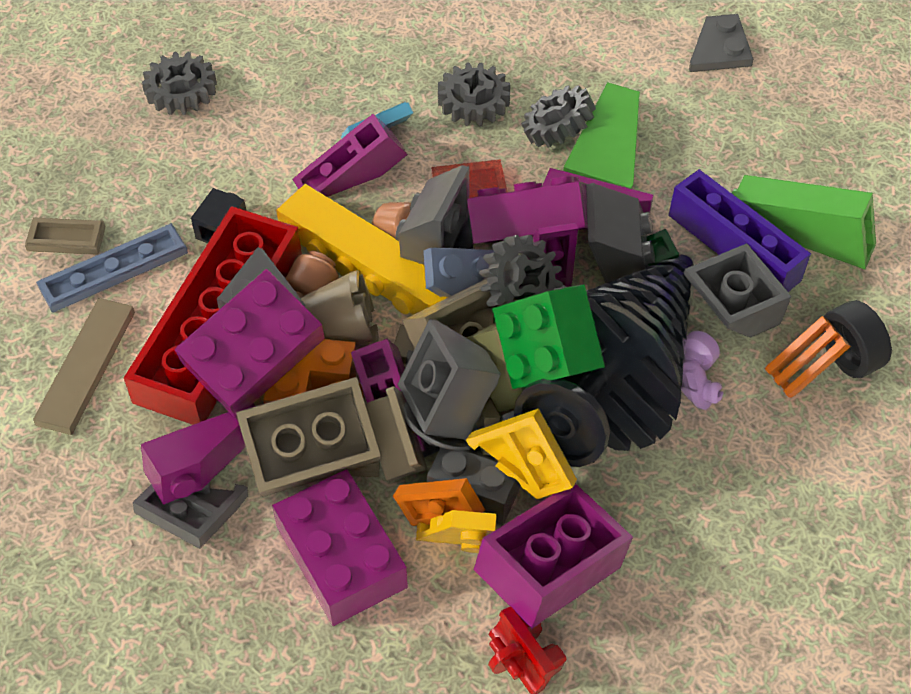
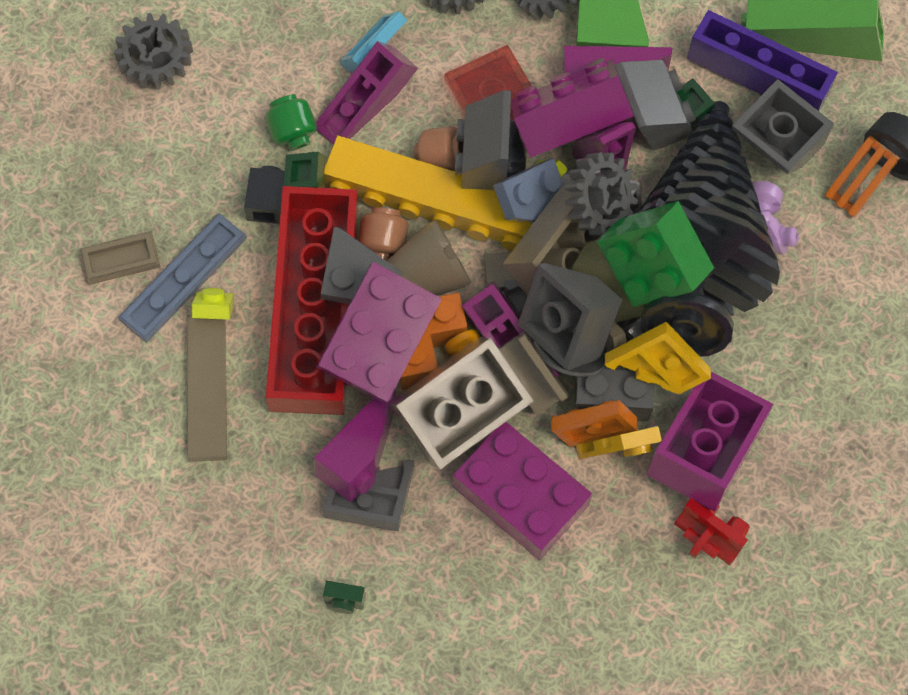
camera: 20 degrees left, 15 degrees up
(114, 593) = (344, 597): none -> dark green plate
(125, 292) = (213, 304): none -> neon yellow plate
(261, 199) = (304, 170): none -> dark green plate
(271, 166) = (290, 122): none -> green head

